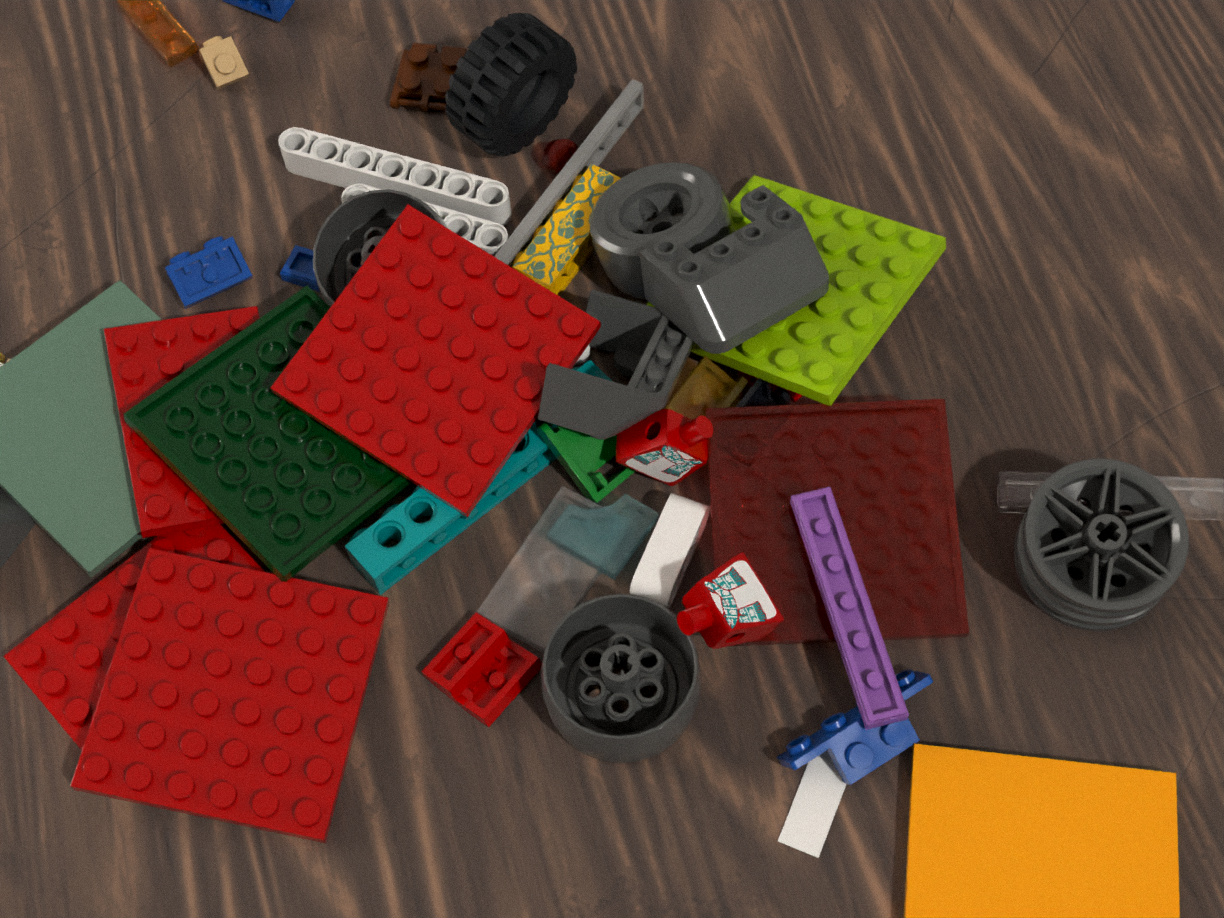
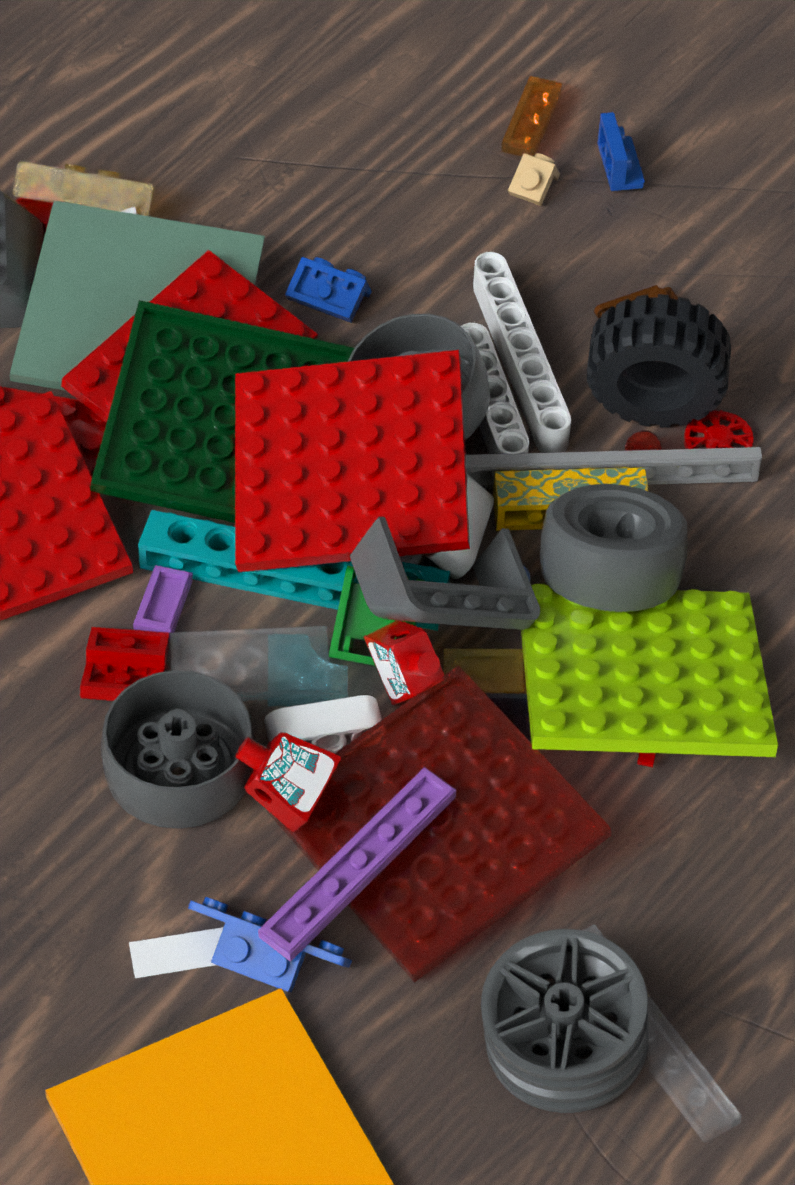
camera: 50 degrees right, 10 degrees down
(435, 598) = (163, 600): none -> medium lavender tile
(586, 104) = (718, 435): none -> red wheel
(740, 280) = (599, 615): dark grey windscreen -> none

